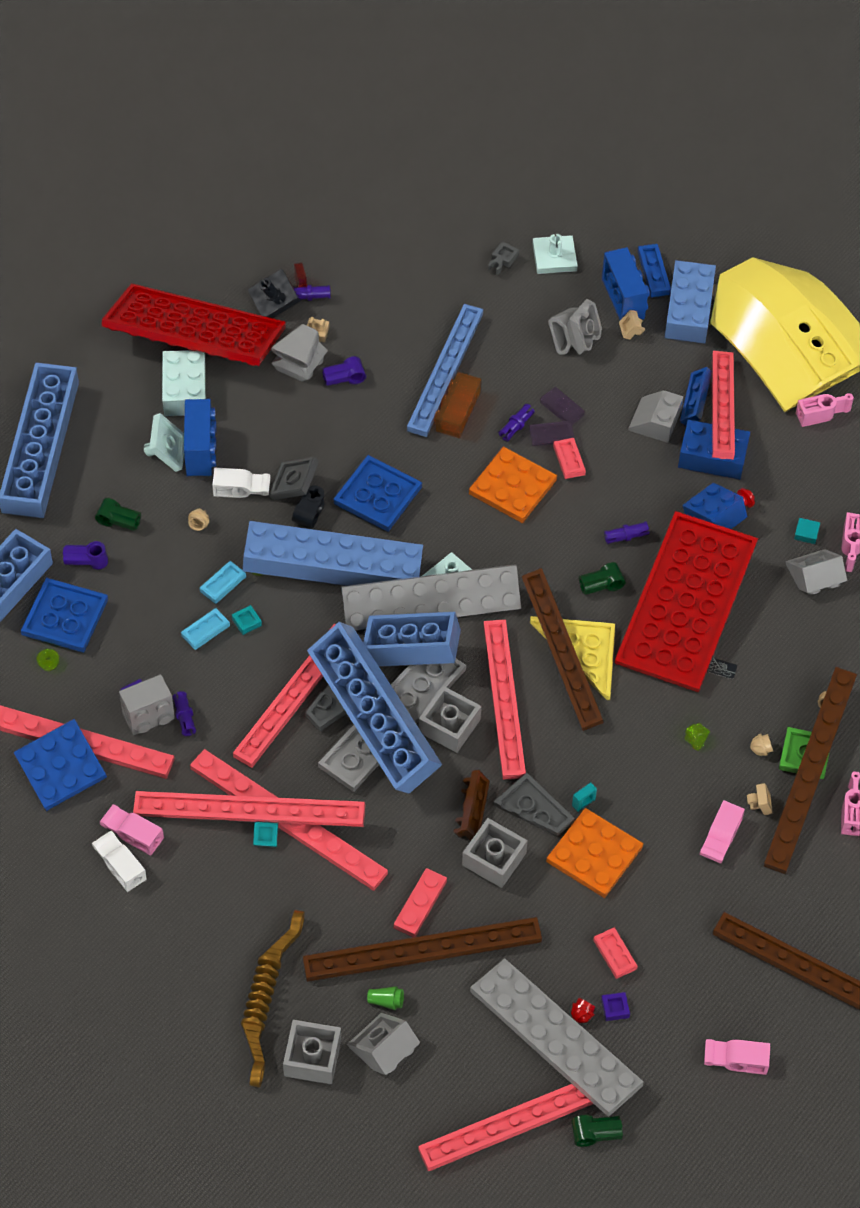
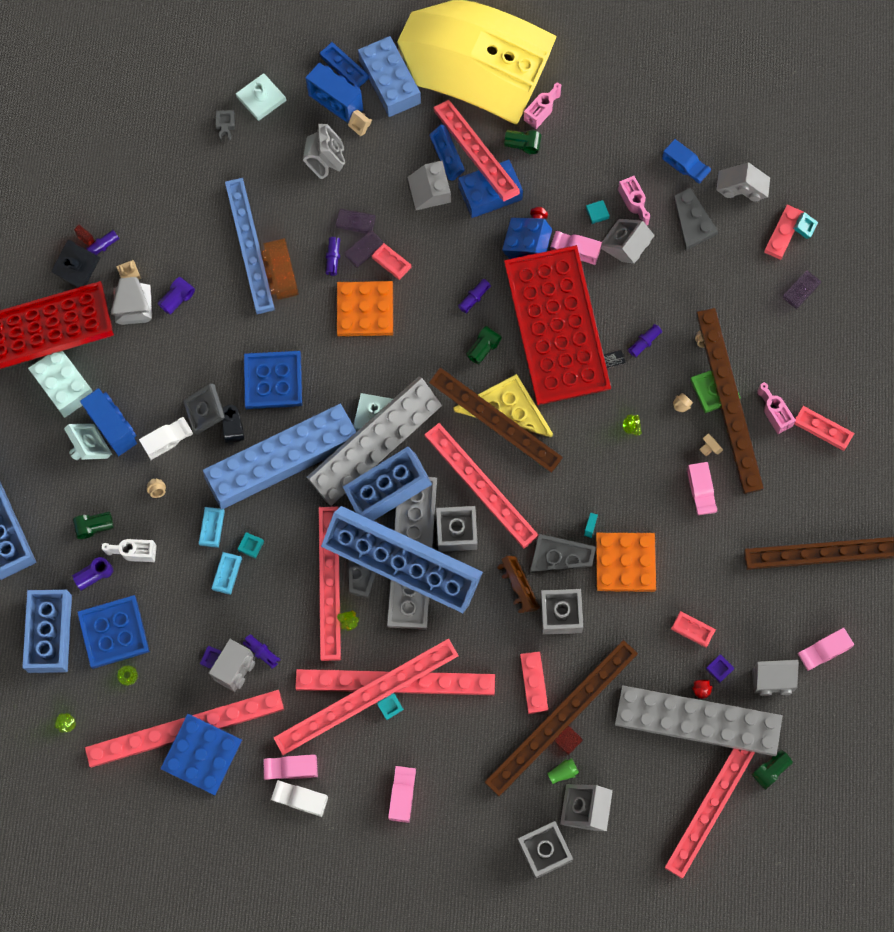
camera: 30 degrees left, 15 degrees up
(136, 557) = (142, 550): none -> white piece
(215, 919) = (402, 794): none -> bright pink piece
(262, 990) = (488, 858): pearl gold piece -> none
(285, 737) = (348, 620): none -> clear neon green plate
(413, 975) = (568, 740): none -> clear red tile
(664, 1043) = (775, 677): none -> light grey slope
(766, 668) = (645, 340): none -> dark purple pin
(767, 551) = (588, 248): none -> bright pink piece
(784, 431) = (527, 141): none -> dark green piece

